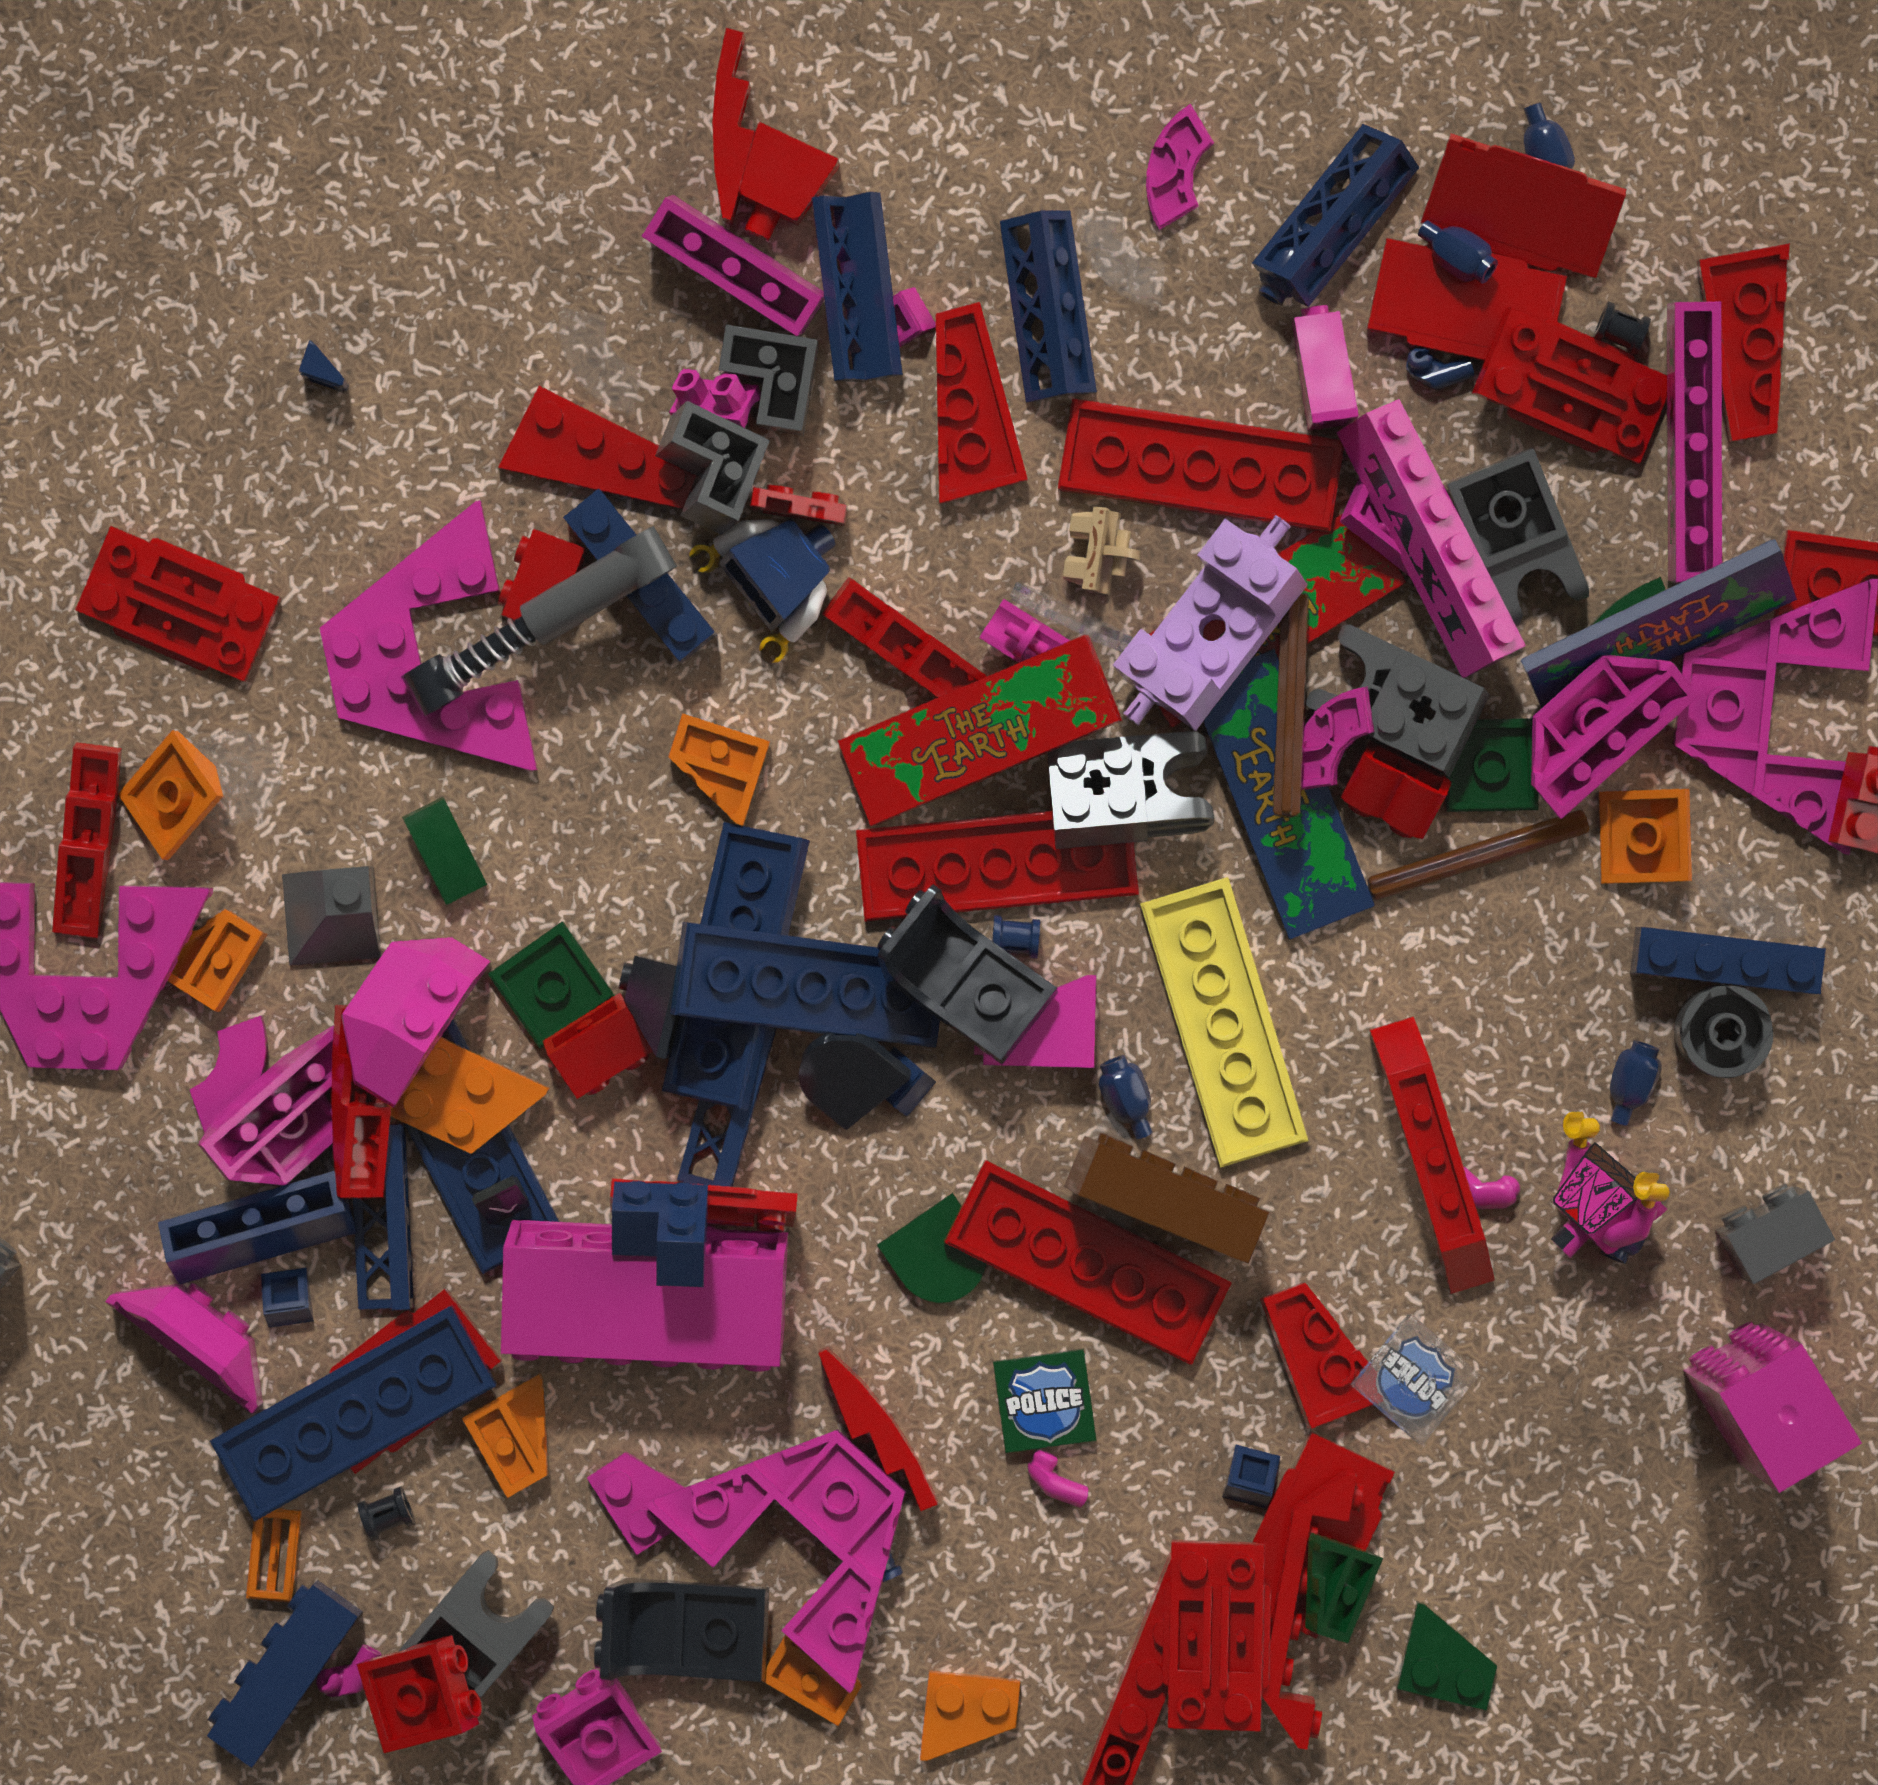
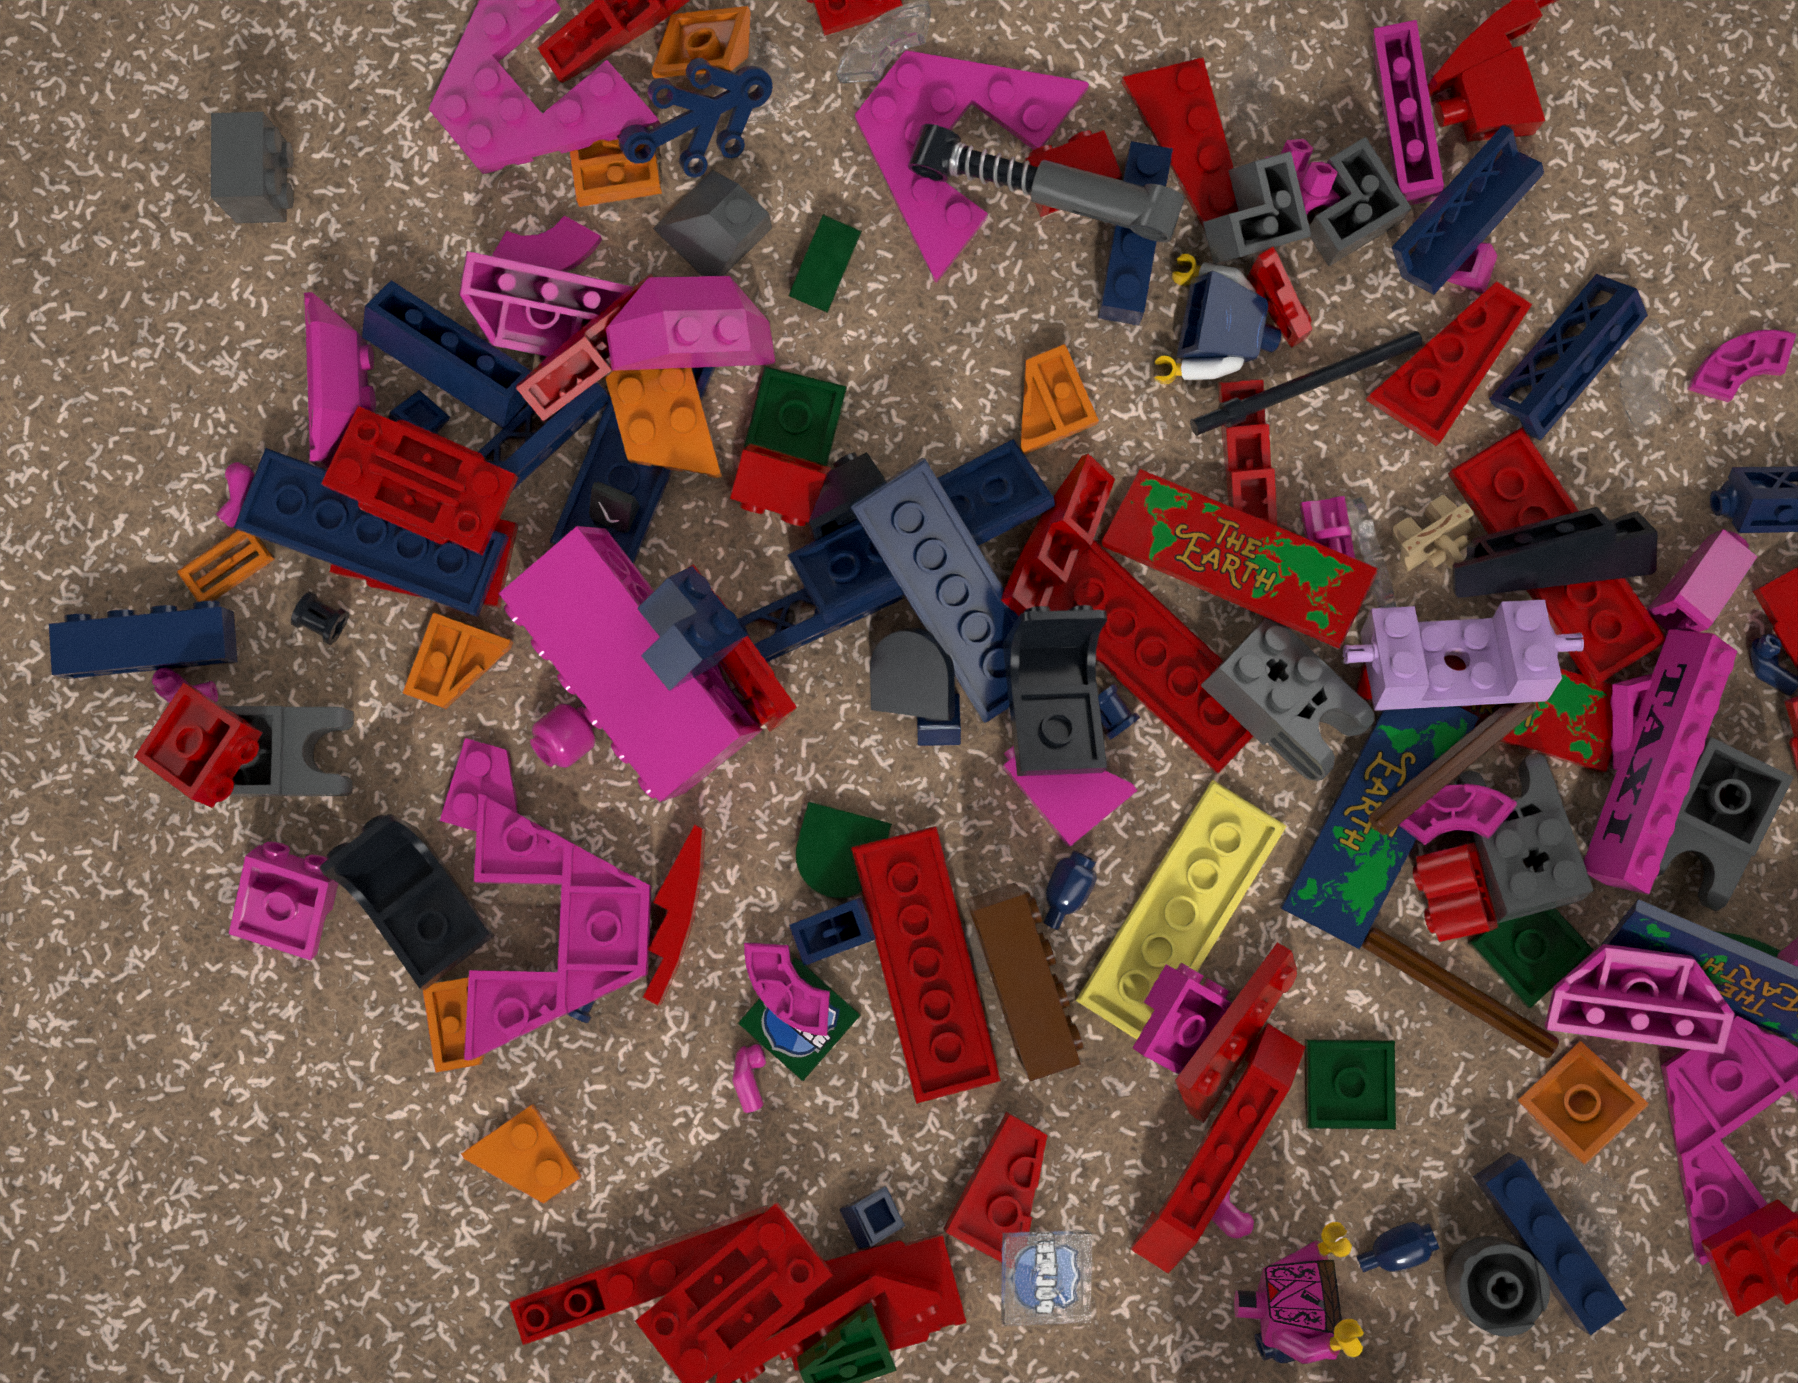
camera: 50 degrees right, 5 degrees down
(220, 1487) = (239, 481): none -> dark pink arm
(244, 799) = (702, 113): none -> dark blue plant
(295, 638) = (882, 41): none -> clear tile
(347, 1338) = (420, 481): none -> red piece
(653, 1397) = (562, 736): none -> dark pink head
(837, 858) = (1059, 536): none -> red slope
(858, 627) = (1235, 410): none -> black bar
(998, 1315) = (832, 931): none -> dark blue slope
(1011, 1393) = (784, 990): none -> dark pink tile
(1198, 469) = (1558, 553): none -> black wedge
(1310, 1097) = (1181, 1017): none -> dark pink plate
(1356, 1076) = (1229, 1041): none -> red wing
(1474, 1005) = (1350, 1084): none -> dark green tile

